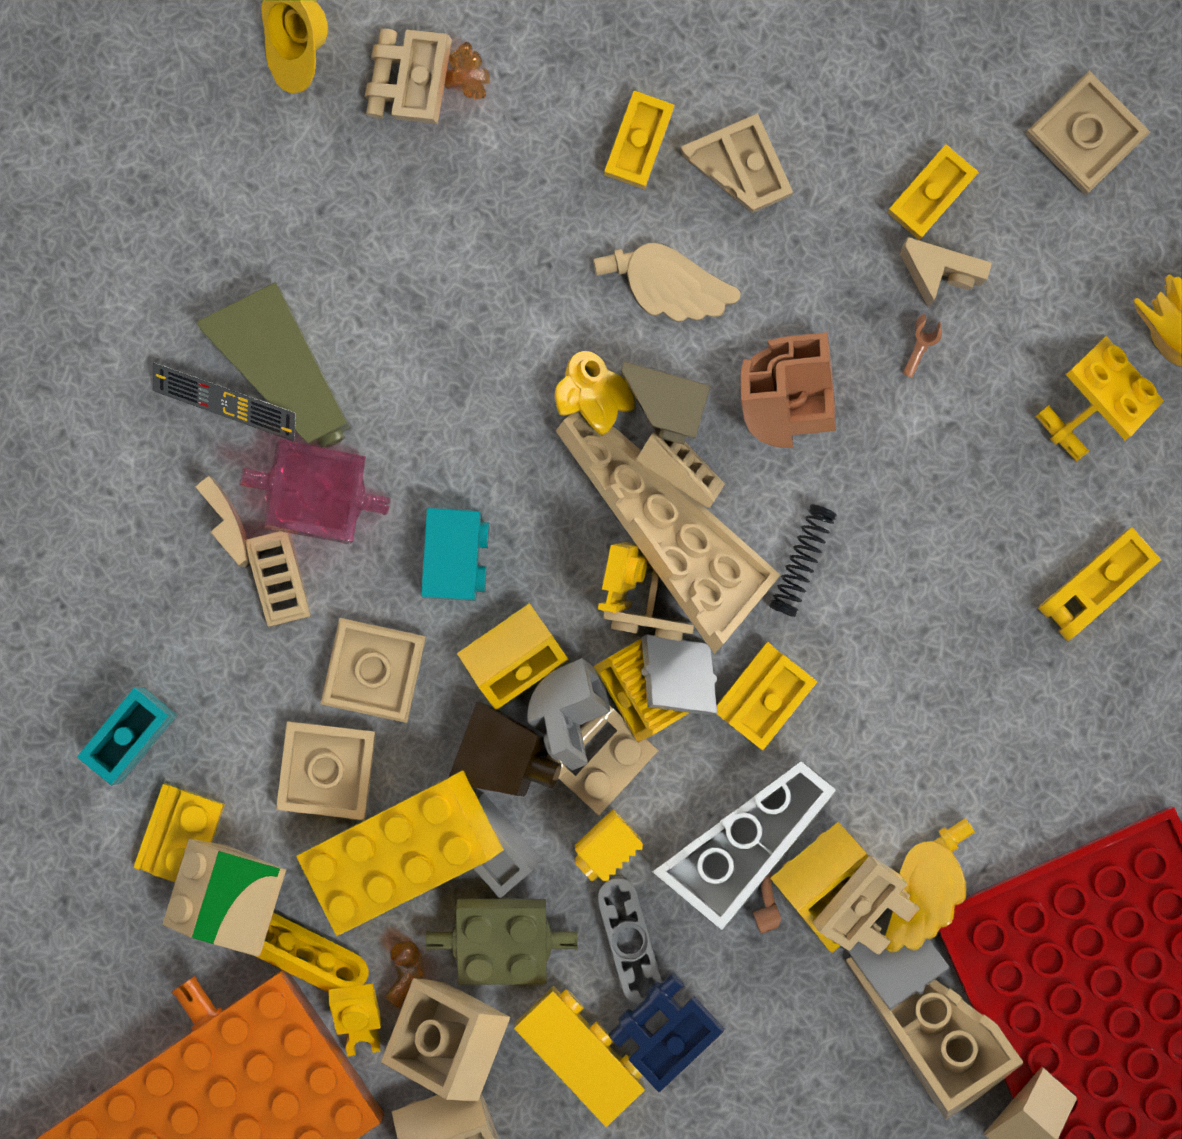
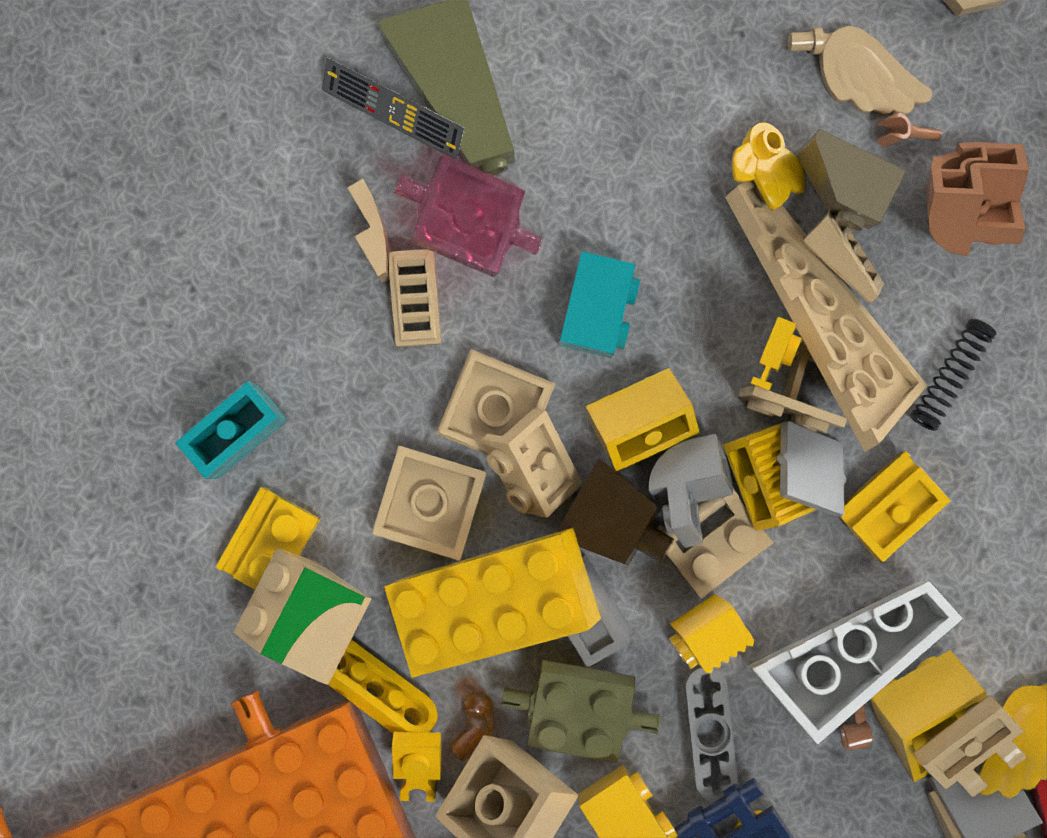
camera: 15 degrees right, 0 degrees up
(417, 717) = (533, 465): none -> tan bracket
(716, 334) = (901, 129): none -> nougat hand

